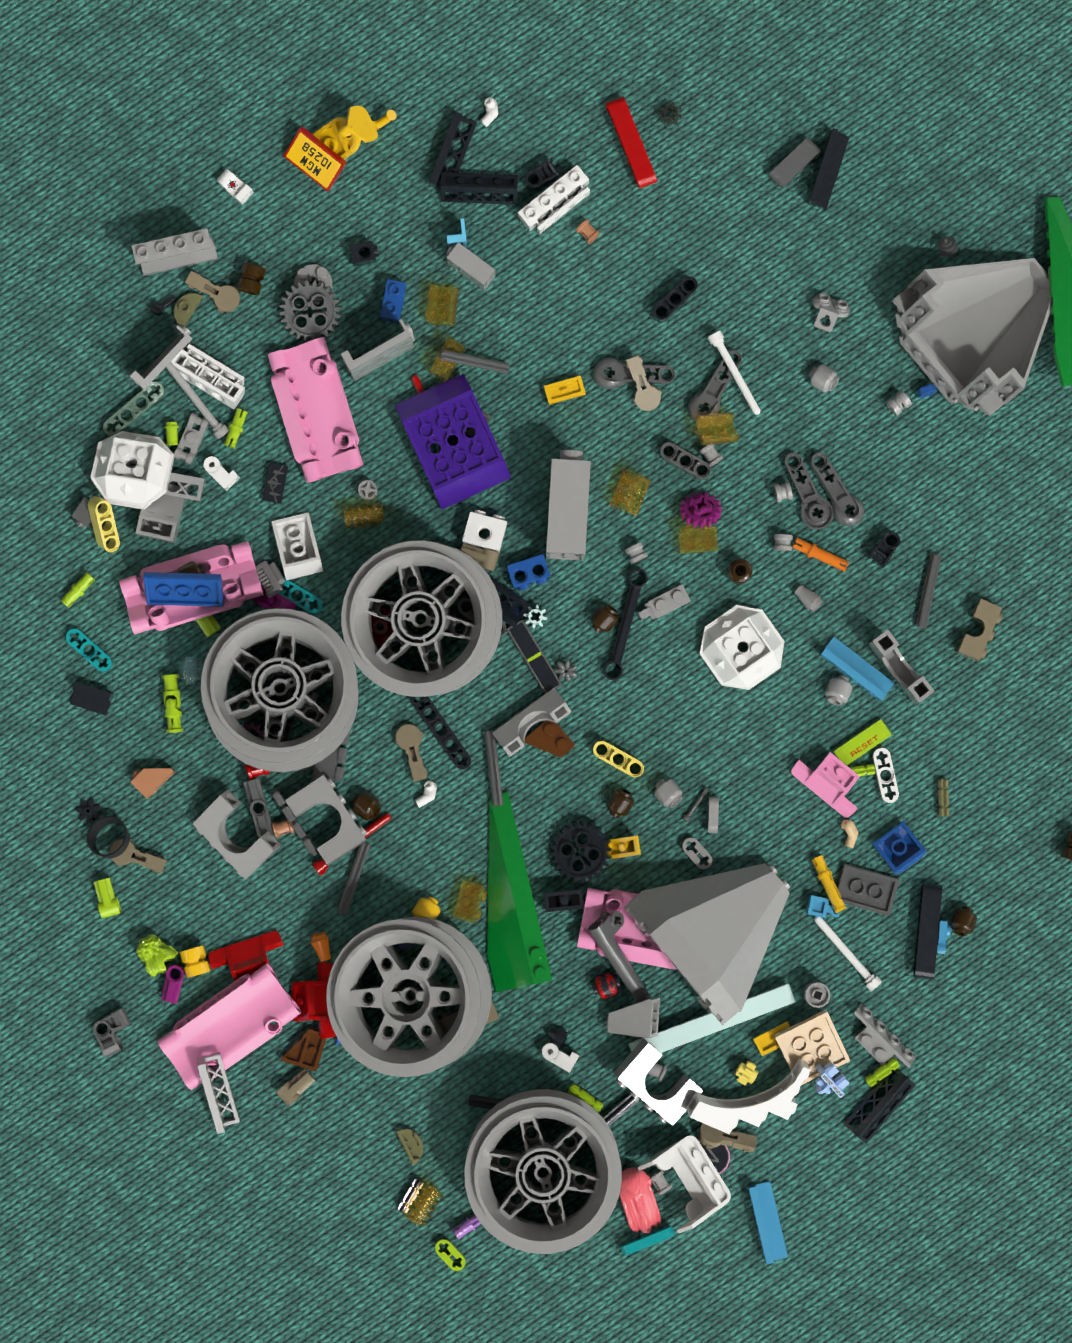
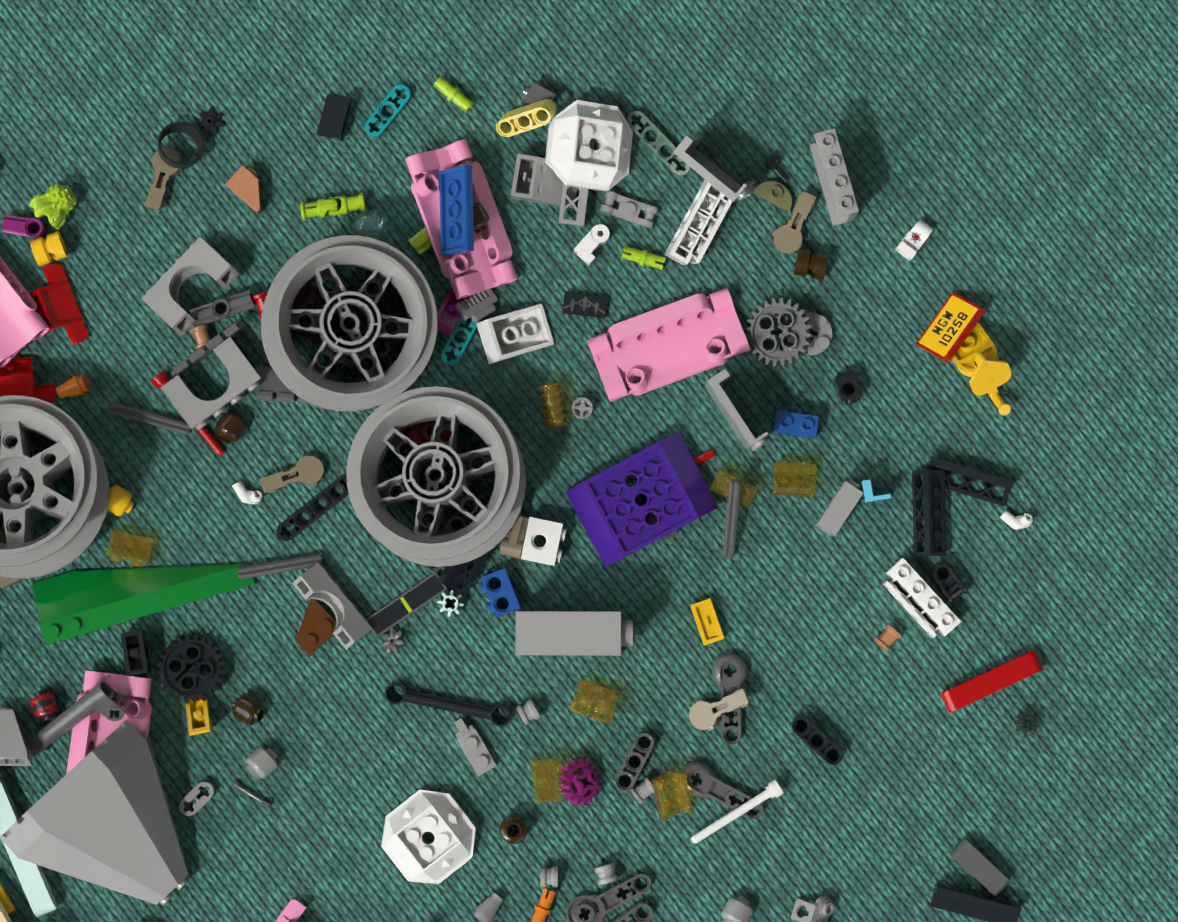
camera: 90 degrees right, 0 degrees up
(108, 903) = (109, 149): lime piece -> none
(171, 433) = (633, 187): lime pin -> none
(218, 428) = (640, 239): light grey piece -> none
(604, 618) = (453, 680): dark brown head -> none
(608, 758) = (288, 712): light yellow beam -> none
(713, 811) = (240, 814): light grey beam -> none

